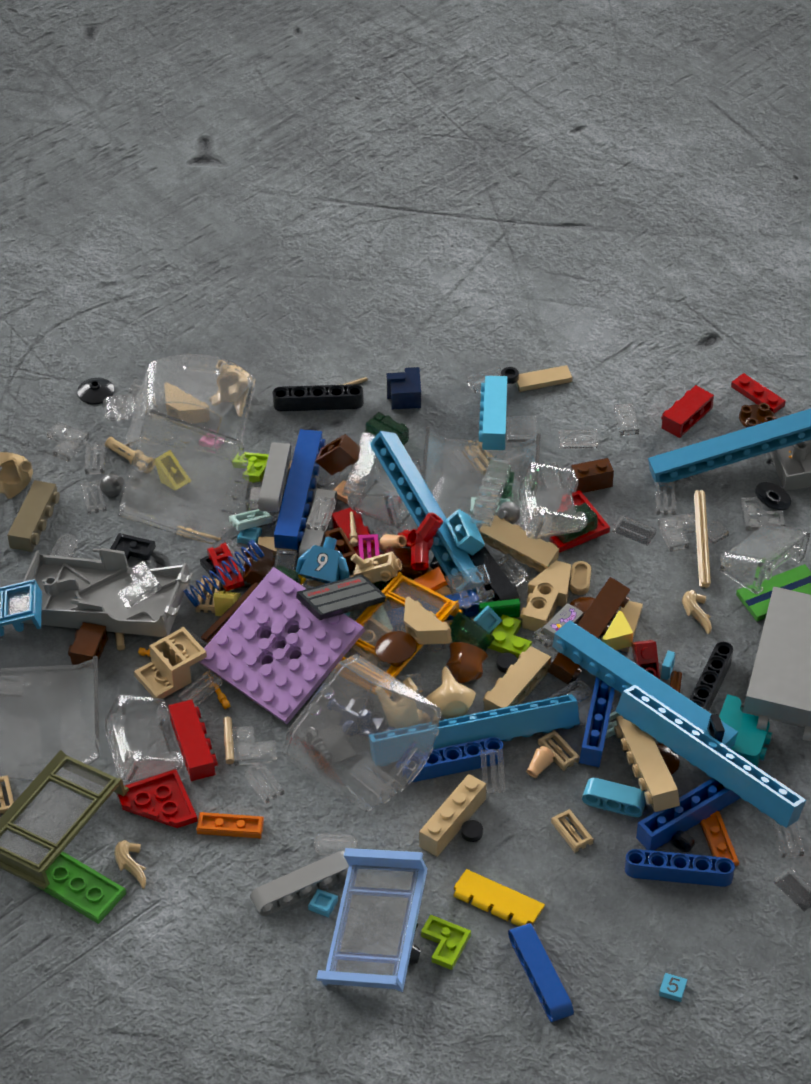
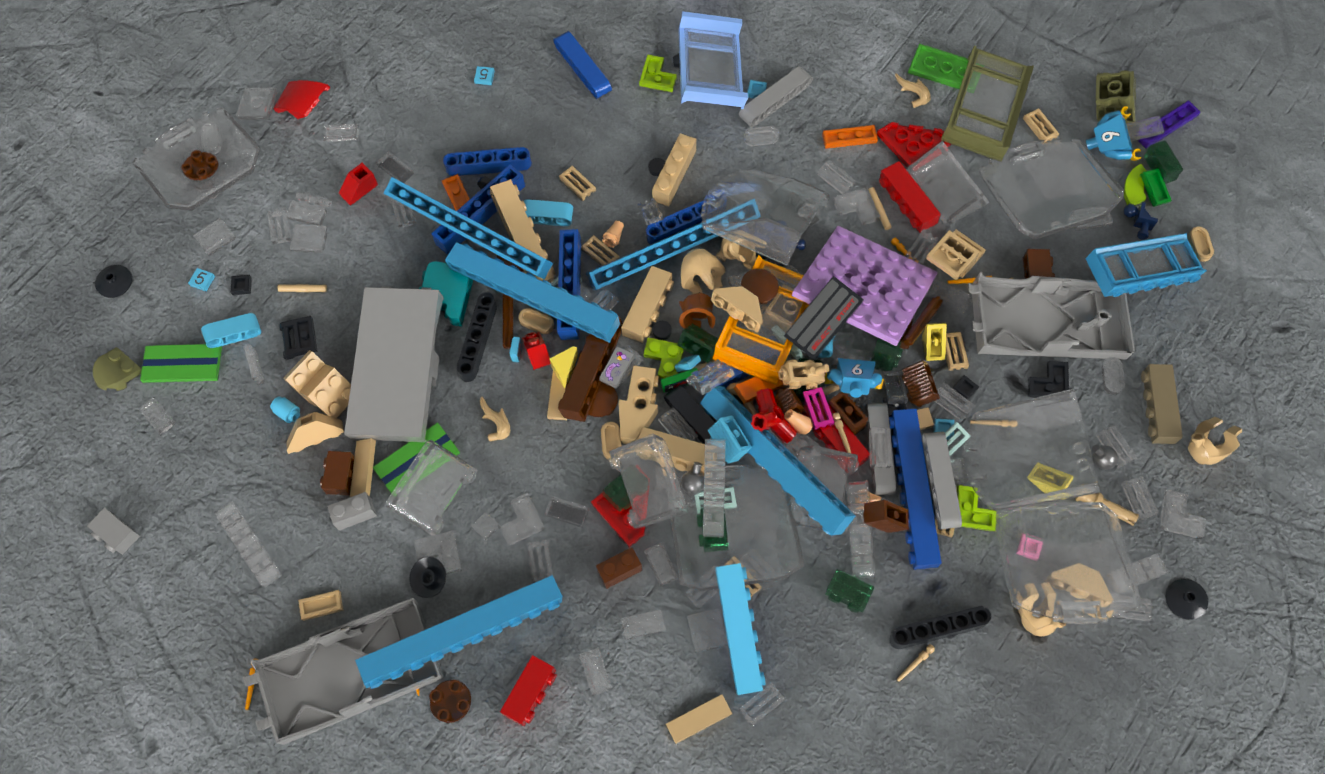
camera: 170 degrees right, 20 degrees up
(144, 585) = (1016, 328): clear plate -> none
(195, 601) = (929, 365): blue piece -> none
(237, 581) = (950, 374): red plate -> none
(404, 388) = (847, 649): dark blue plate -> none
(502, 899) = (621, 118): yellow windscreen -> none
(511, 373) = (736, 706): black tile -> none
(702, 539) = (497, 507): tan axle -> none
(716, 727) = (462, 245): black tile -> none
(757, 392) = (451, 745): red plate -> none

